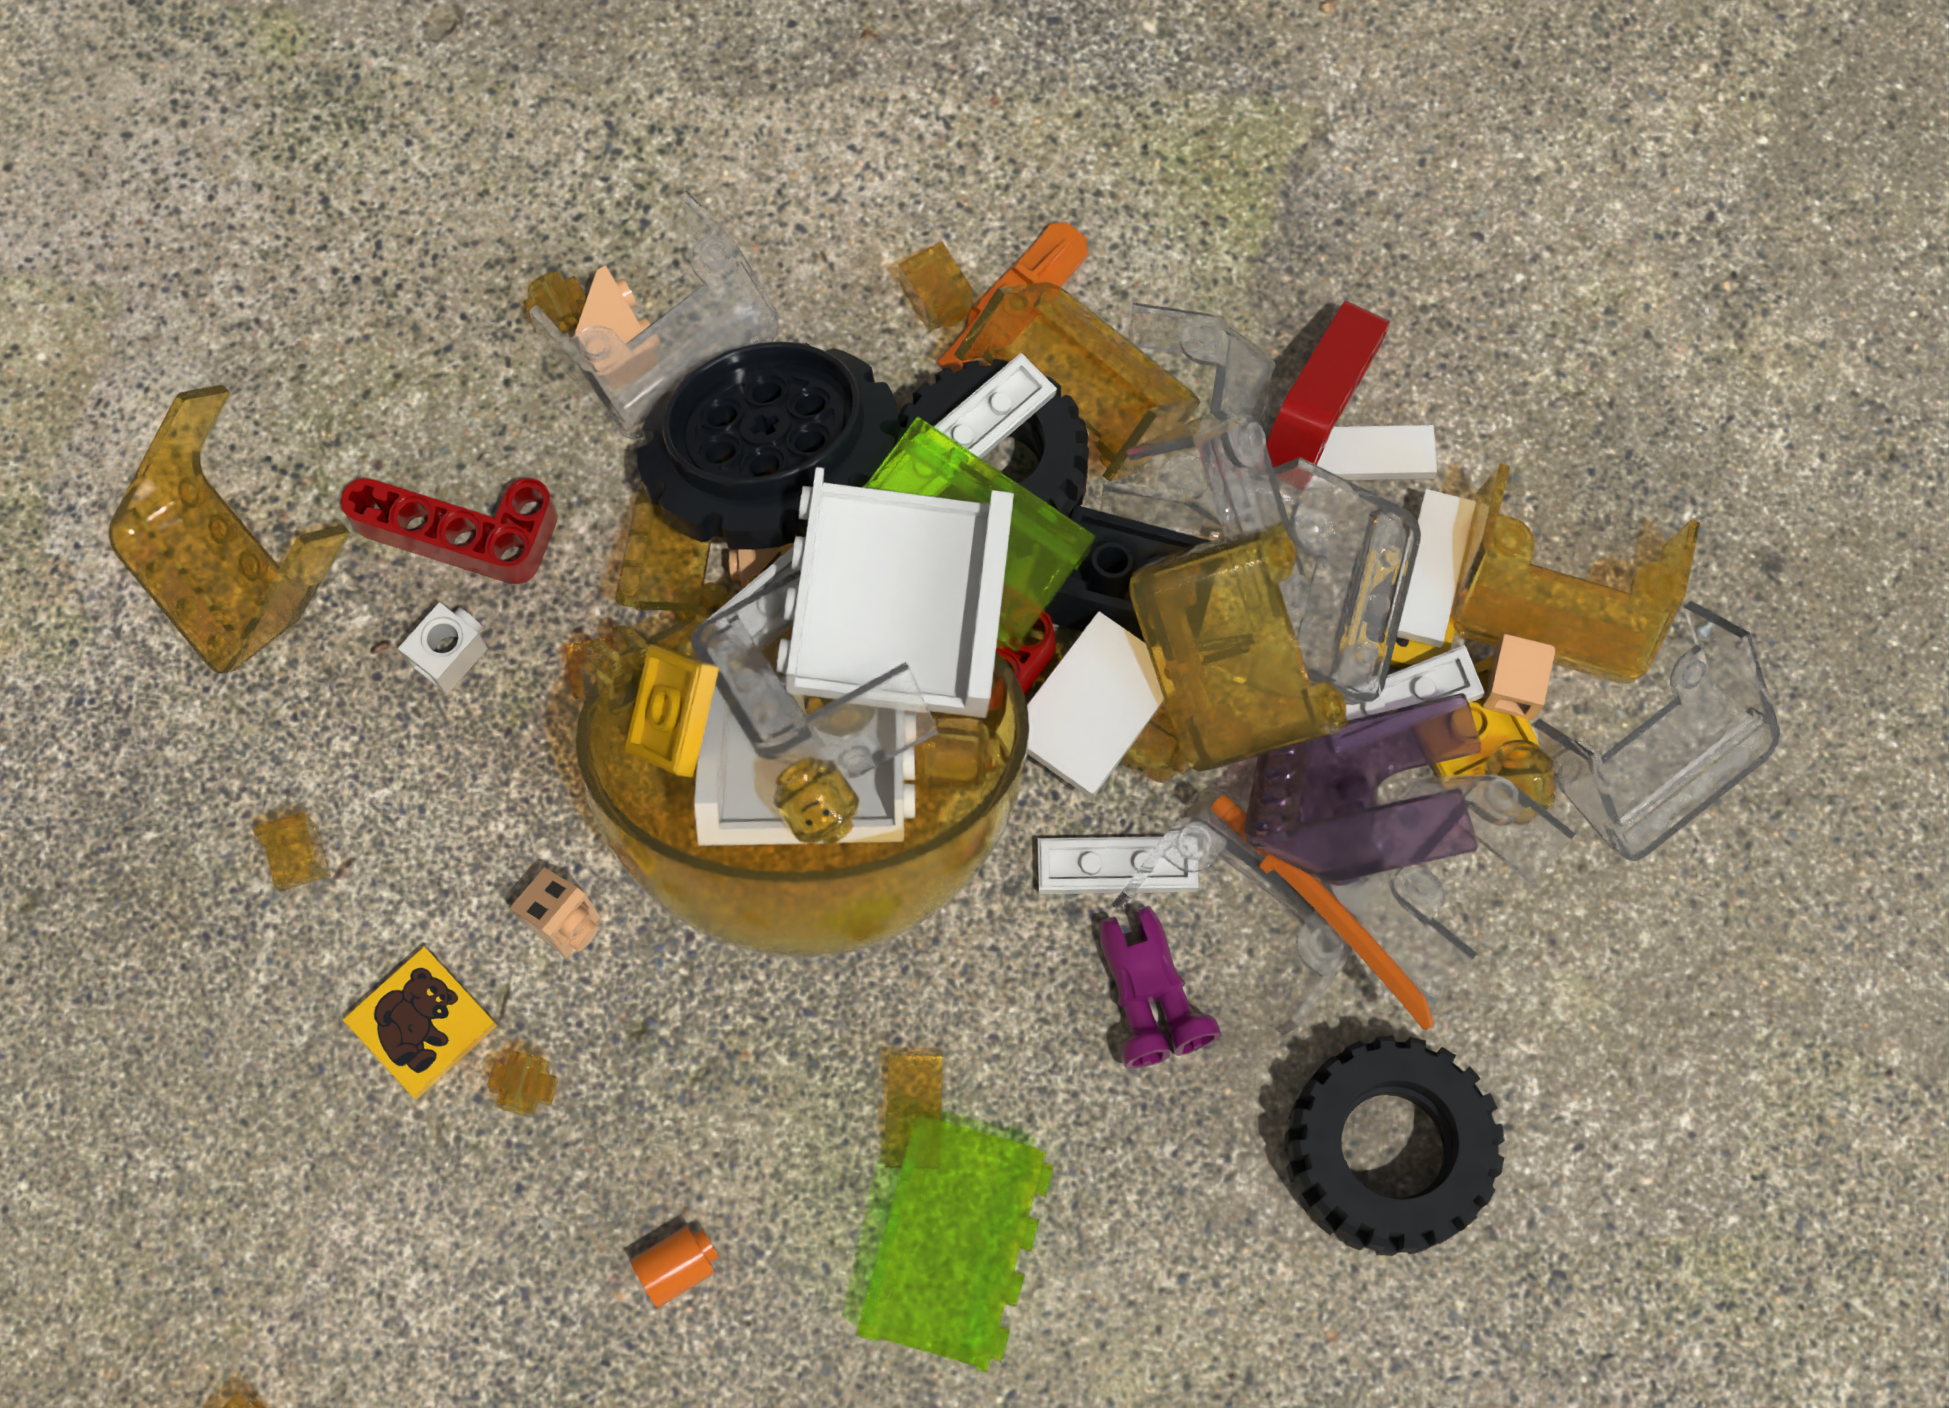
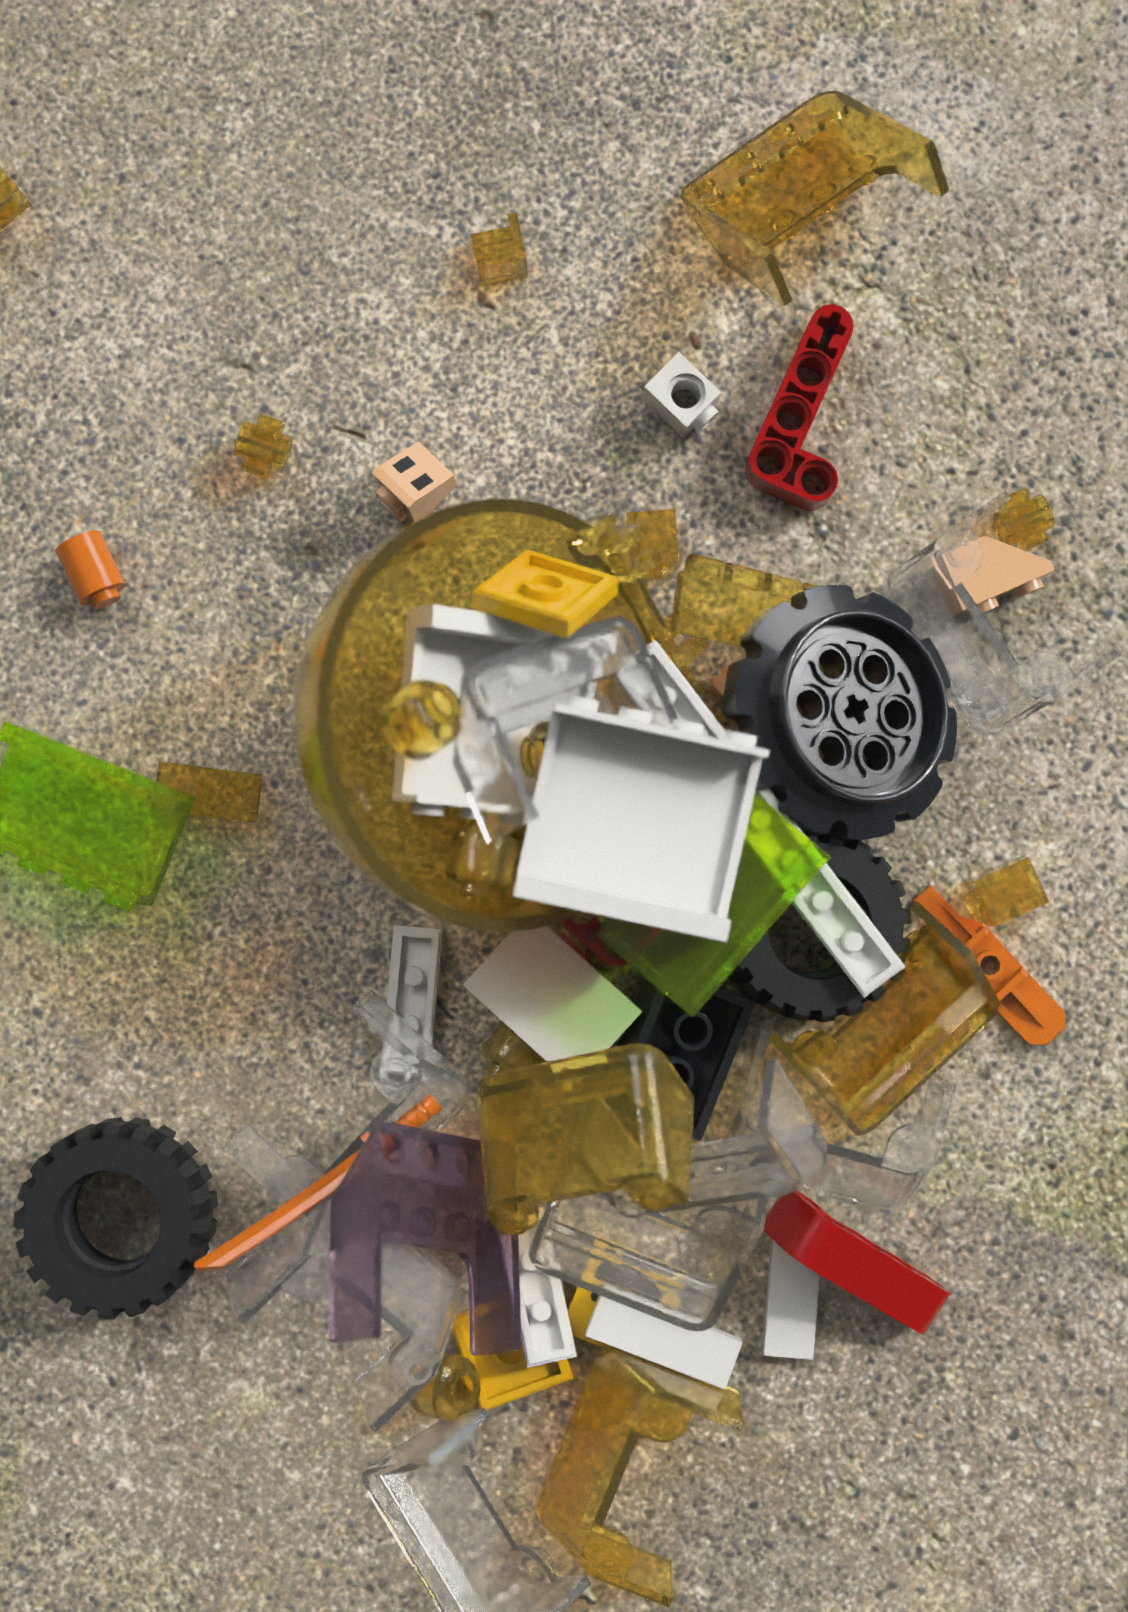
camera: 95 degrees right, 15 degrees up
(420, 1023) = (334, 360): tile -> none
(1145, 976) = (300, 1013): magenta piece -> none
(1519, 677) = (542, 1403): light nougat panel -> none

